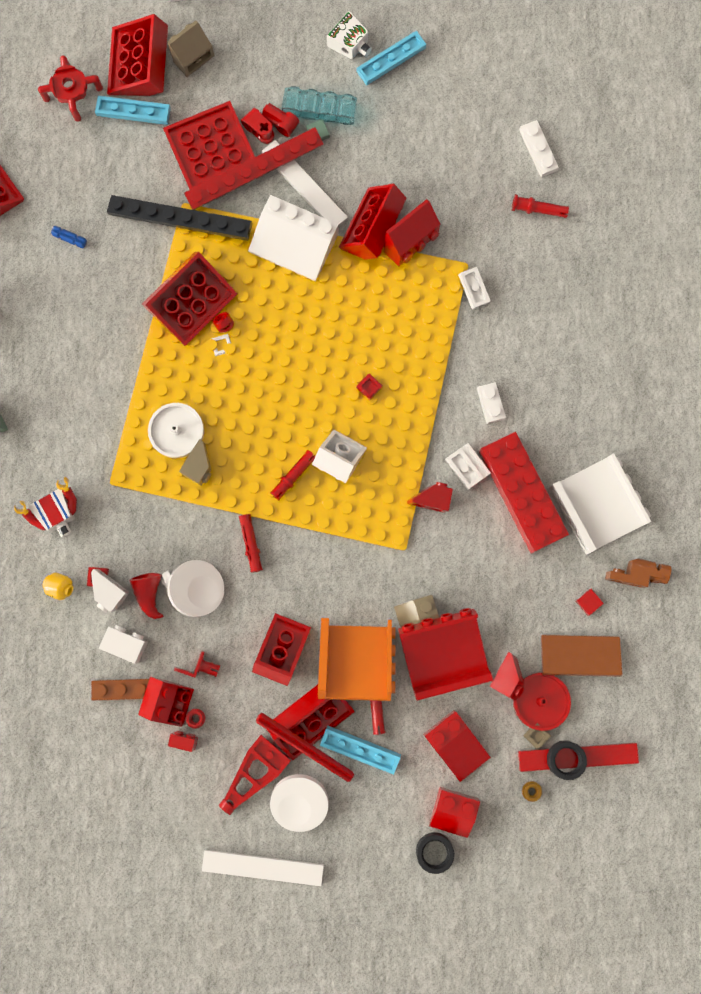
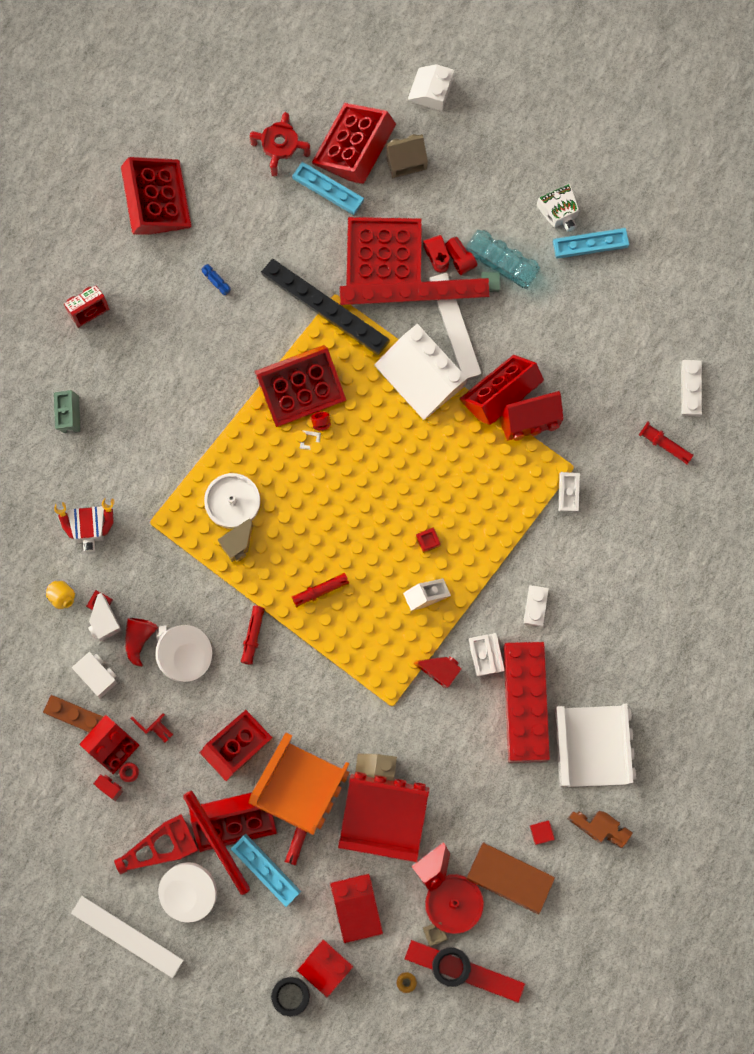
camera: 20 degrees right, 5 degrees down
(339, 456) = (370, 591): white slope -> none
(390, 435) = (426, 594): none -> white slope

